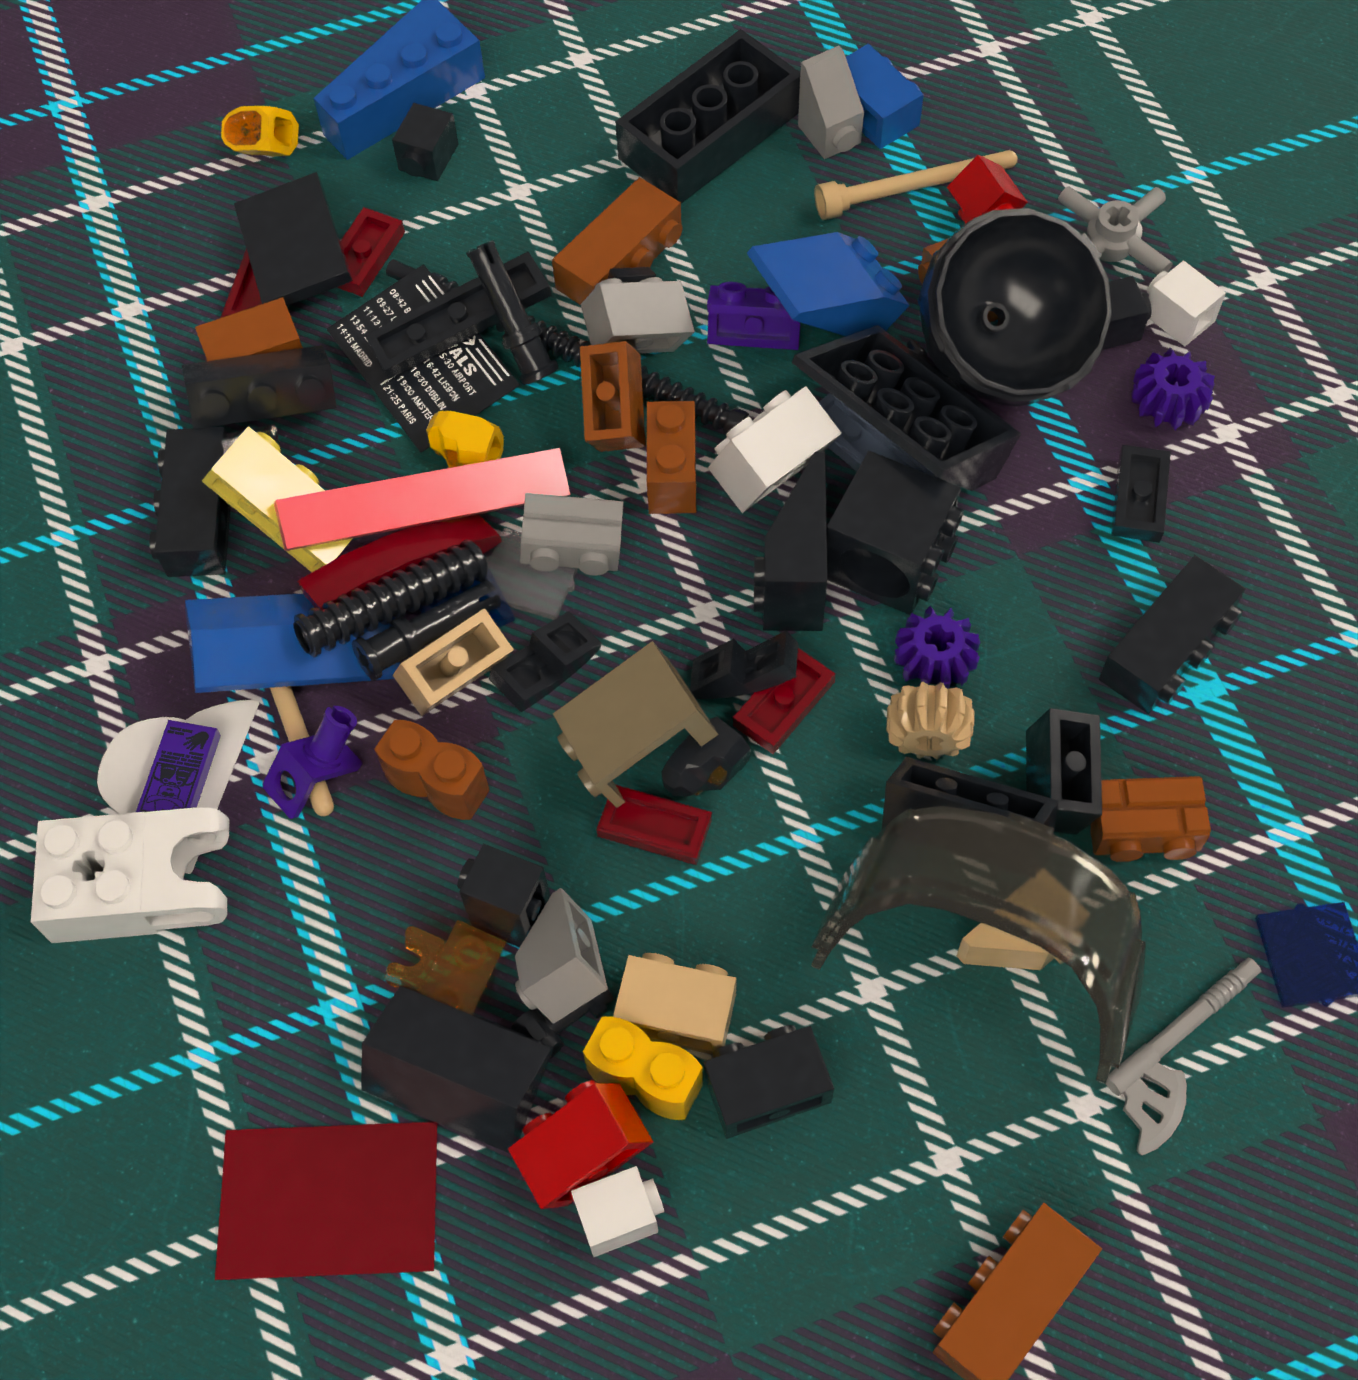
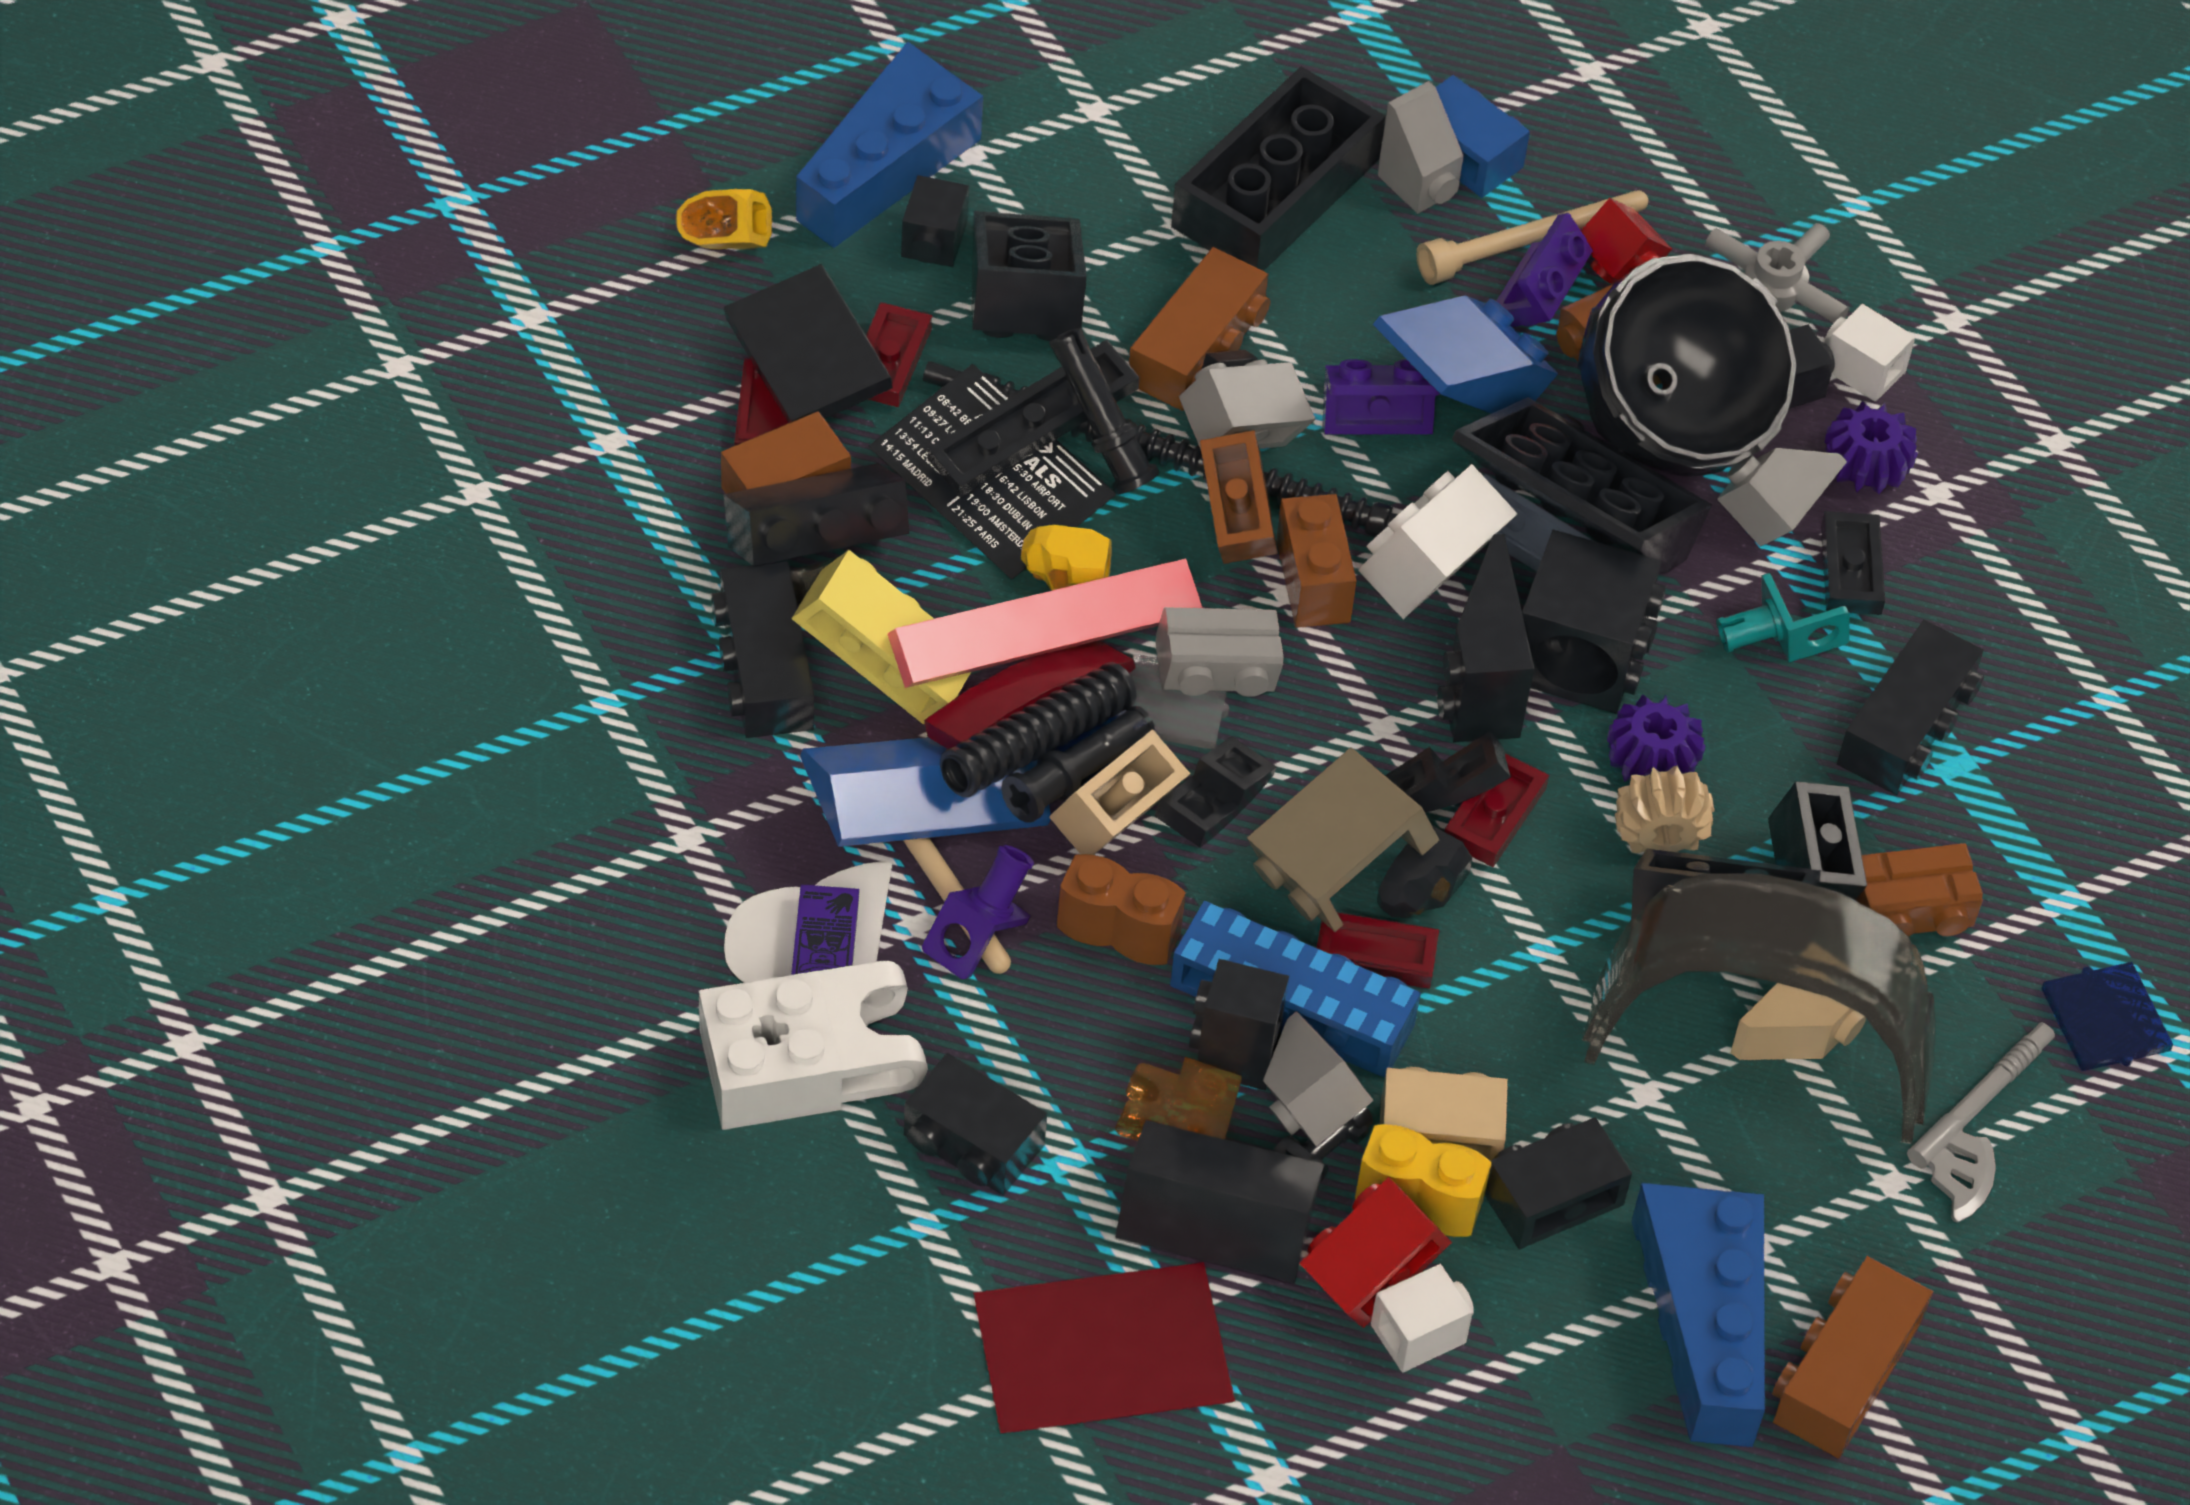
camera: 15 degrees left, 10 degrees down
(257, 967) = (974, 1124): none -> black brick
(487, 192) = (1027, 275): none -> black slope
(590, 867) = (1350, 1007): none -> blue brick
(890, 1216) = (1709, 1291): none -> blue wedge
(916, 217) = (1546, 273): none -> dark purple bracket
(1060, 543) = (1775, 621): none -> teal bracket
(1084, 422) = (1777, 489): none -> light grey slope

